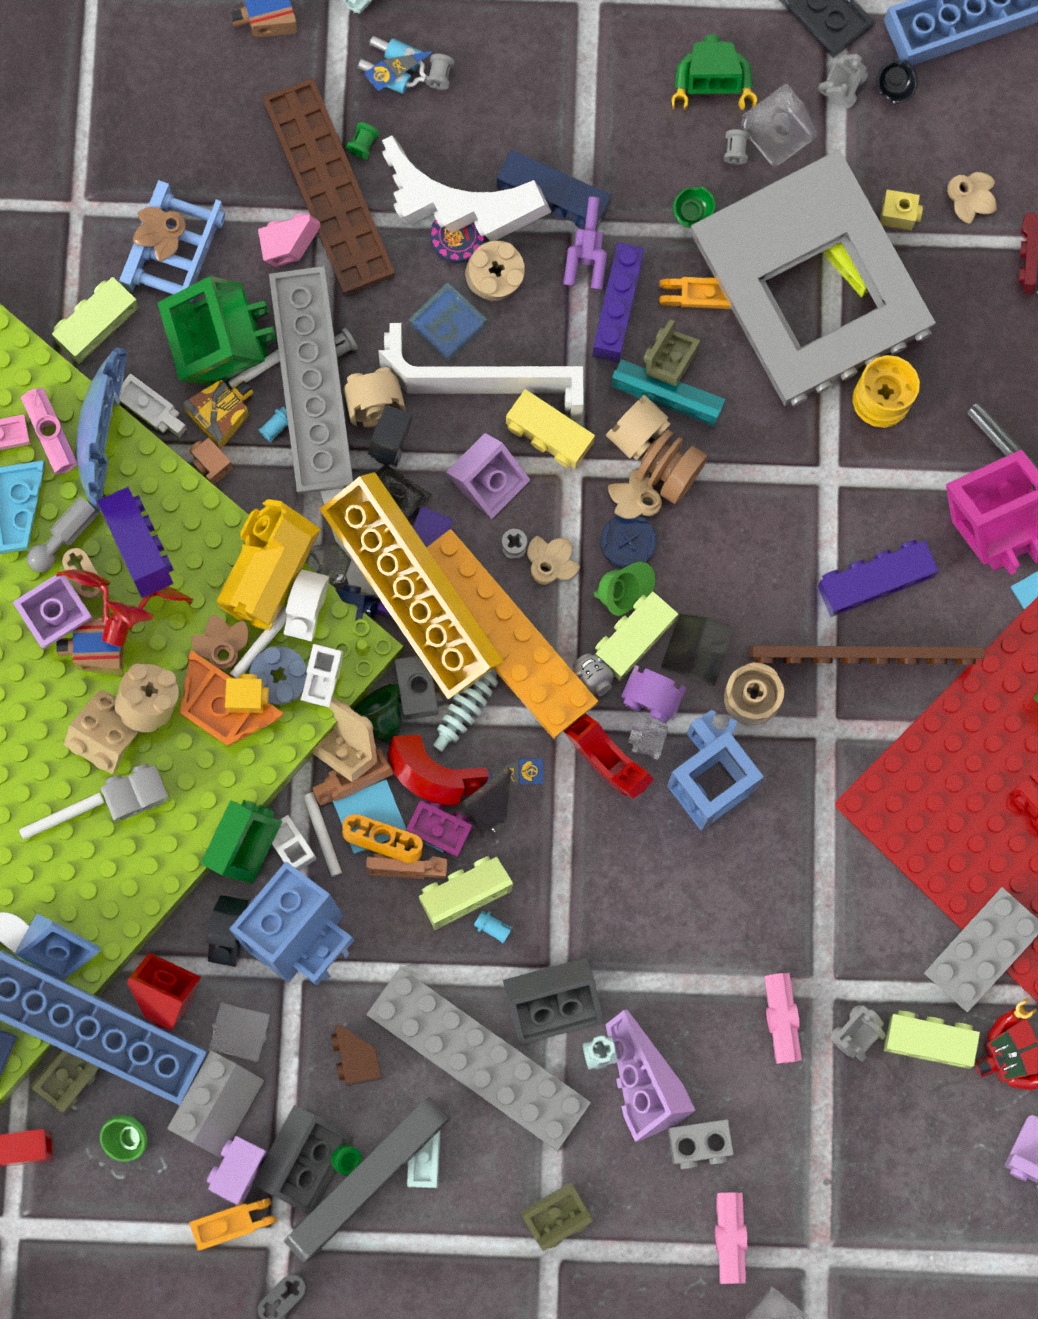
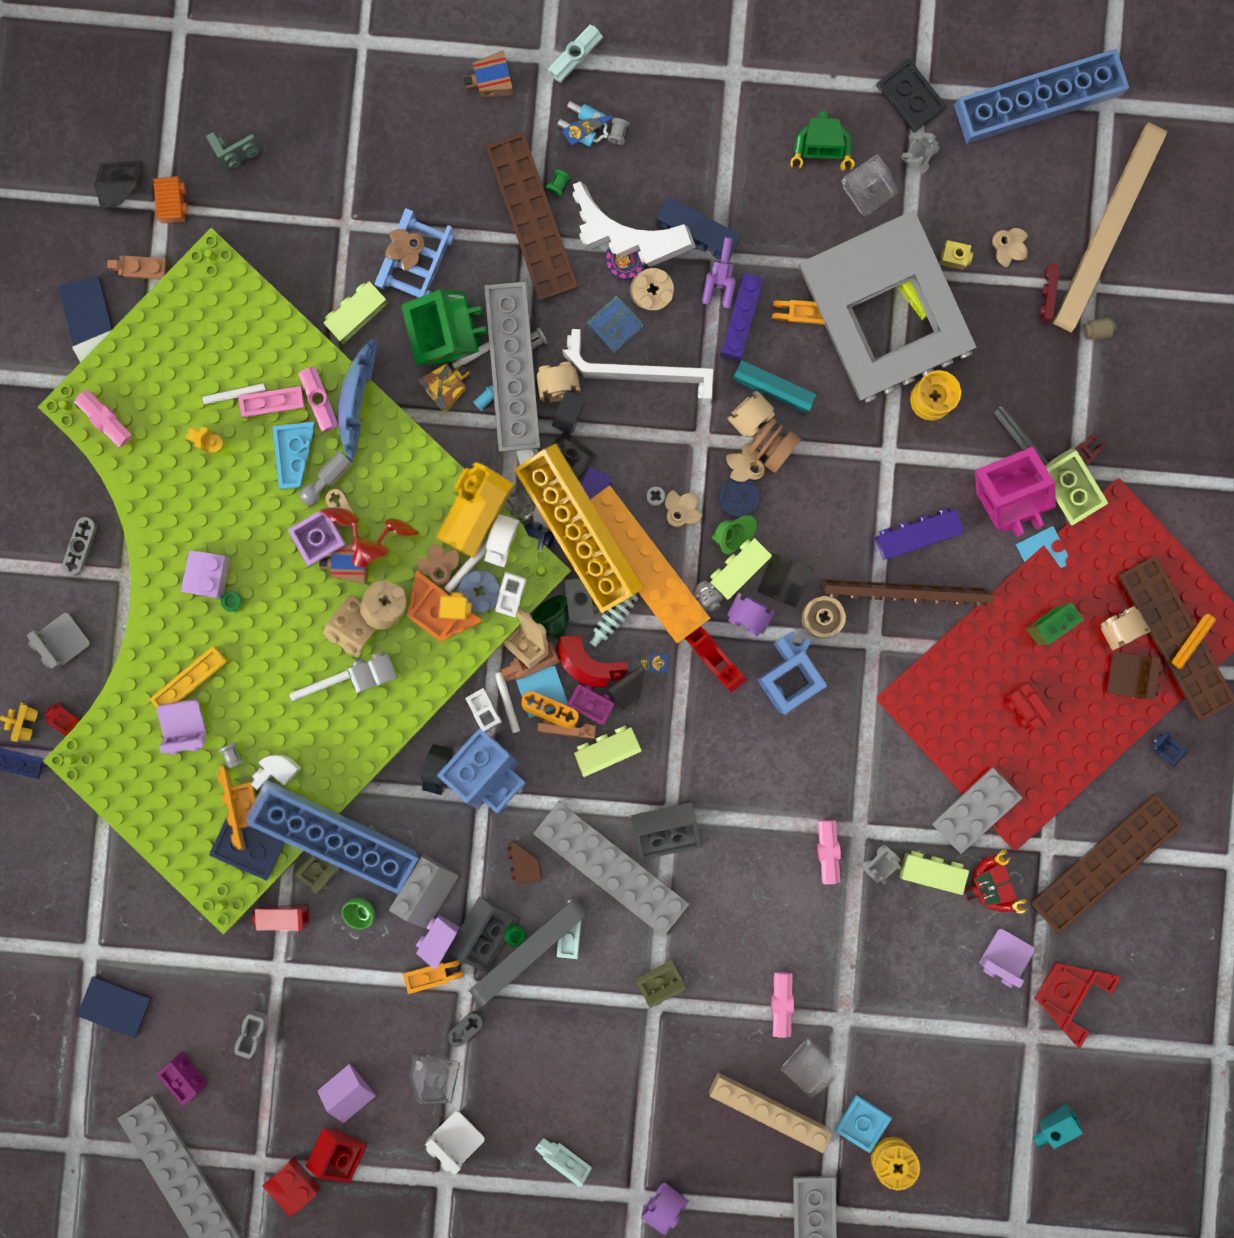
camera: 10 degrees right, 10 degrees up
(55, 948) = (312, 782): medium blue slope -> none
(135, 542) = (378, 489): dark purple brick -> none
(150, 406) = (394, 379): white hinge -> none
(163, 990) = (388, 812): red slope -> none
(210, 460) = (436, 423): nougat brick -> none
(229, 838) = (448, 708): green window -> none
(239, 1032) = (442, 840): clear piece -> none
(287, 240) = (499, 258): bright pink slope -> none
(488, 475) = (639, 444): lavender slope -> none
(492, 926) = (625, 775): medium azure pin -> none
(549, 430) = (685, 412): light yellow brick -> none
(599, 1052) = (697, 873): light aqua piece -> none
(648, 738) = (745, 645): clear brick -> none
(650, 1088) = (732, 897): lavender wedge -> none
(670, 355) = (778, 359): olive bracket -> none
(693, 206) = (802, 246): green hair -> none
(699, 1135) = (765, 930): light grey brick -> none
(736, 146) = (837, 200): light grey bush -> none
(897, 81) = (961, 154): black hair -> none

